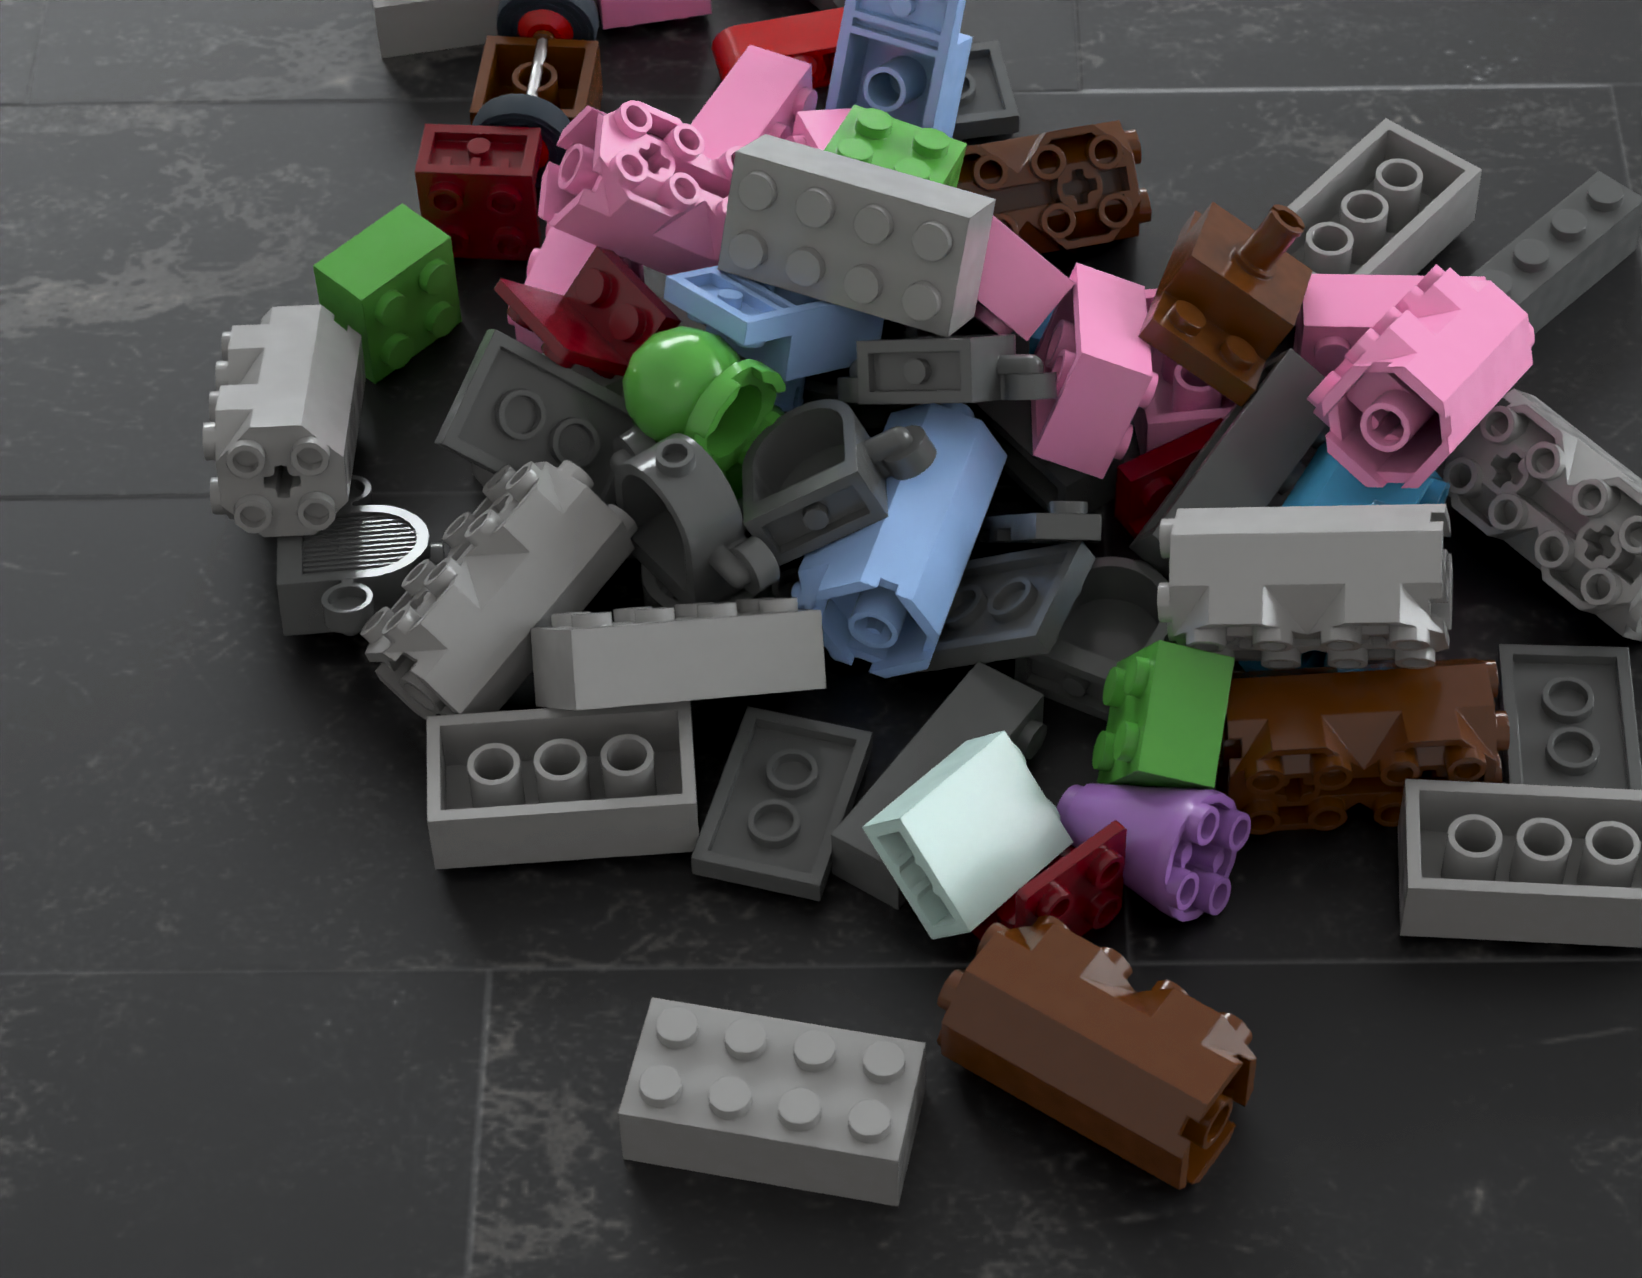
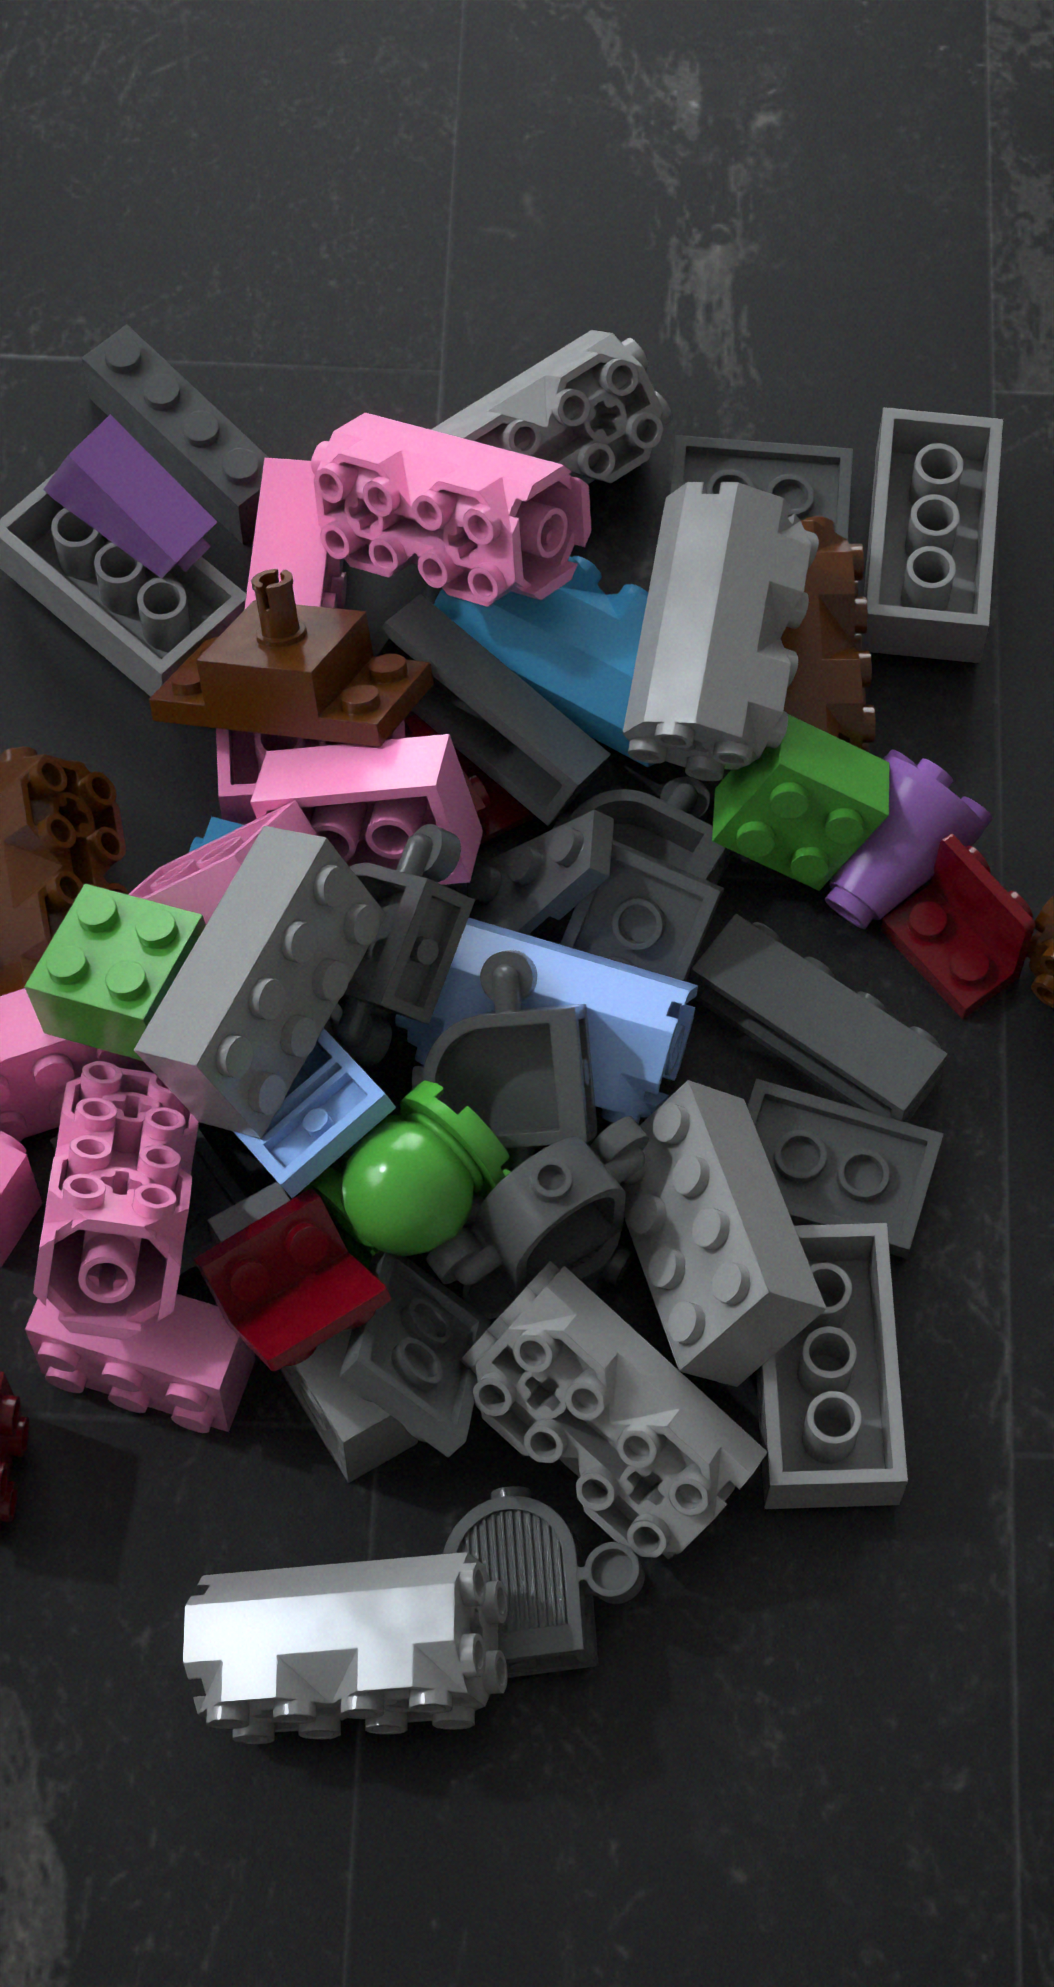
camera: 90 degrees left, 15 degrees up
(392, 288) = (117, 1552): bright green brick -> none
(968, 835) = (912, 986): light aqua brick -> none
(1414, 180) = (131, 500): none -> medium lavender slope

